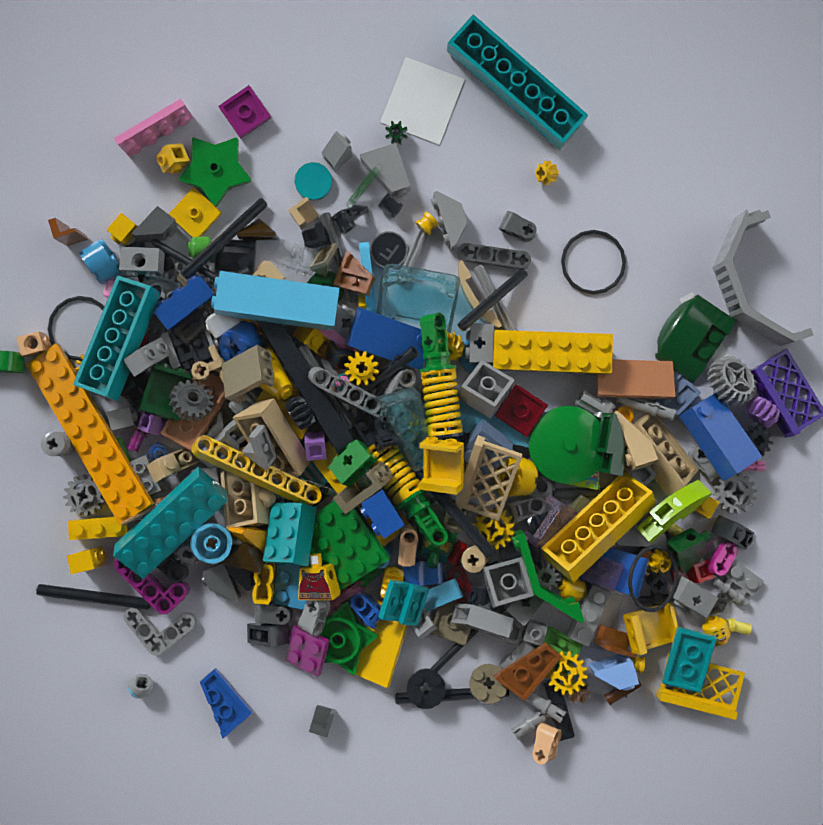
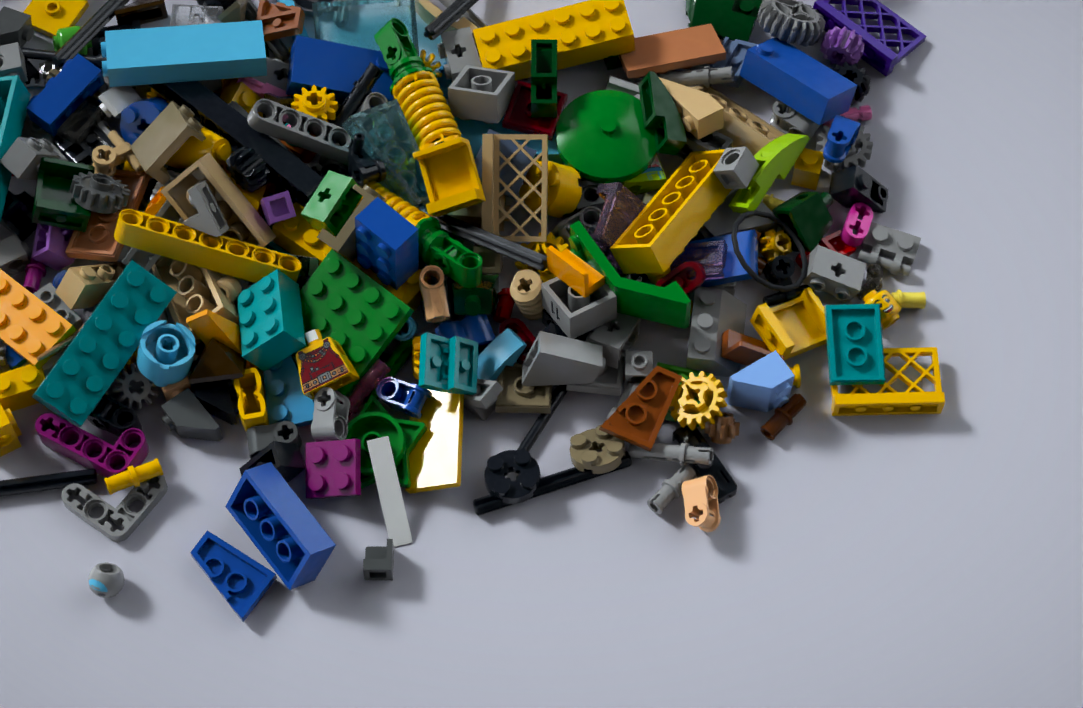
camera: 15 degrees left, 25 degrees down
(172, 618) = (133, 476): none -> yellow pin
(228, 420) = (156, 203): none -> light orange tile
(261, 687) = (280, 525): none -> blue brick
(340, 677) = (389, 491): none -> white sticker
(510, 567) = (574, 271): none -> light orange panel
(535, 391) = (543, 78): none -> dark green slope
(584, 589) = (681, 275): none -> dark red plate
(651, 518) = (736, 167): none -> light grey brick
(734, 497) = (840, 138): none -> blue piece

